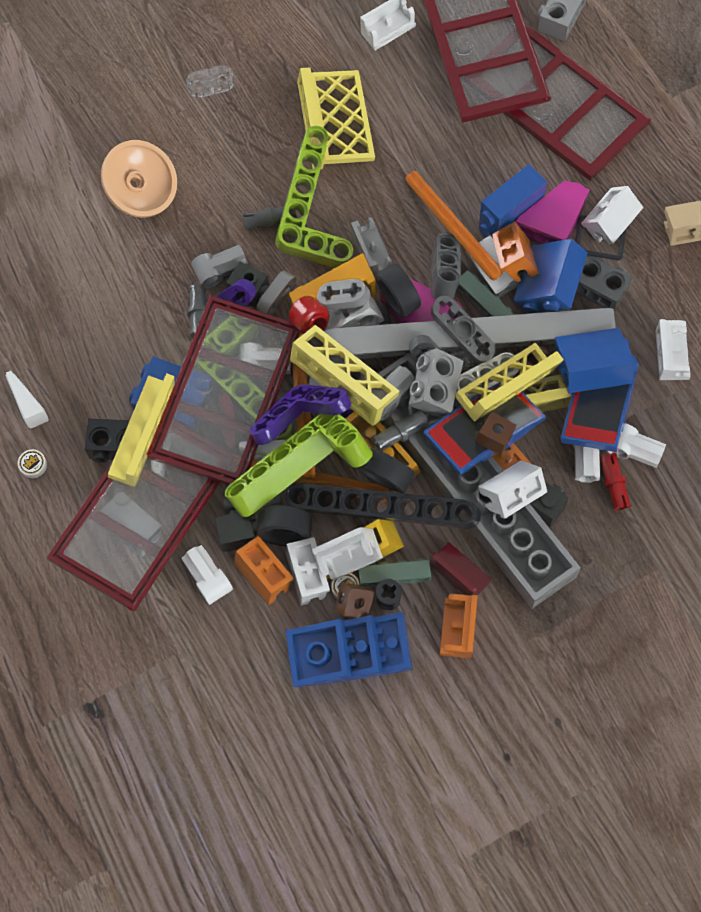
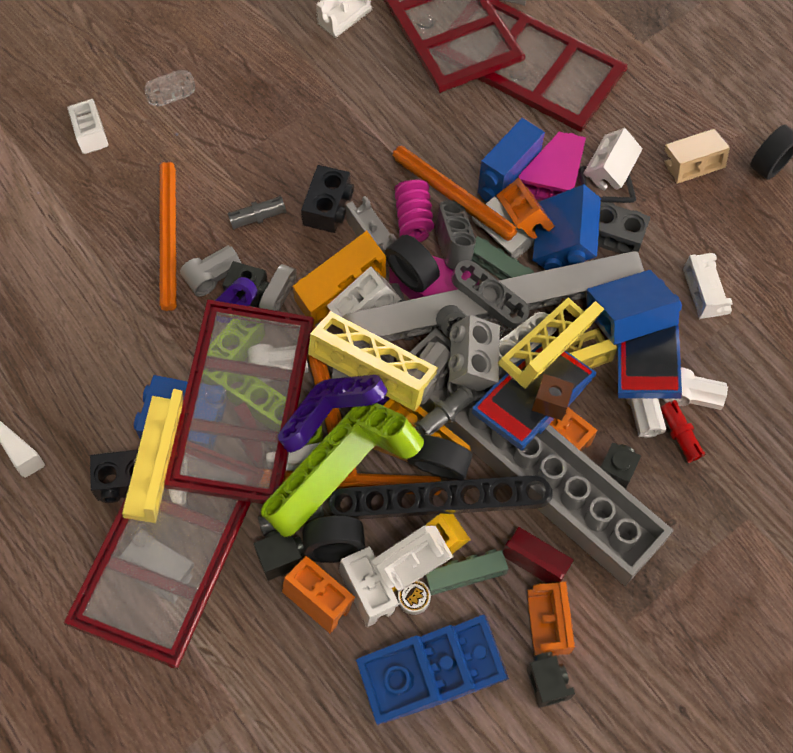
camera: 15 degrees left, 5 degrees down
(32, 463) = (32, 517): tile -> none
(129, 109) = (88, 127): none -> white slope
(151, 172) = (116, 181): light nougat dish -> none
(186, 226) = (167, 236): none -> orange axle
(197, 306) = (193, 317): dark grey pin -> none
(209, 579) = (259, 616): white piece -> none
(302, 203) = (290, 191): lime beam -> none
(308, 312) = (318, 302): red head -> none
(313, 113) = (285, 105): light yellow fence -> none
(331, 212) = (321, 198): none -> black brick
(343, 297) = (354, 276): light grey beam -> none
(351, 594) = (425, 604): reddish brown piece -> none
(390, 586) = (465, 587): black bush -> none
(413, 236) = (414, 209): none -> dark pink piece
(446, 676) = (549, 680): none -> pearl dark grey brick
(514, 488) = (582, 454): white hinge -> none

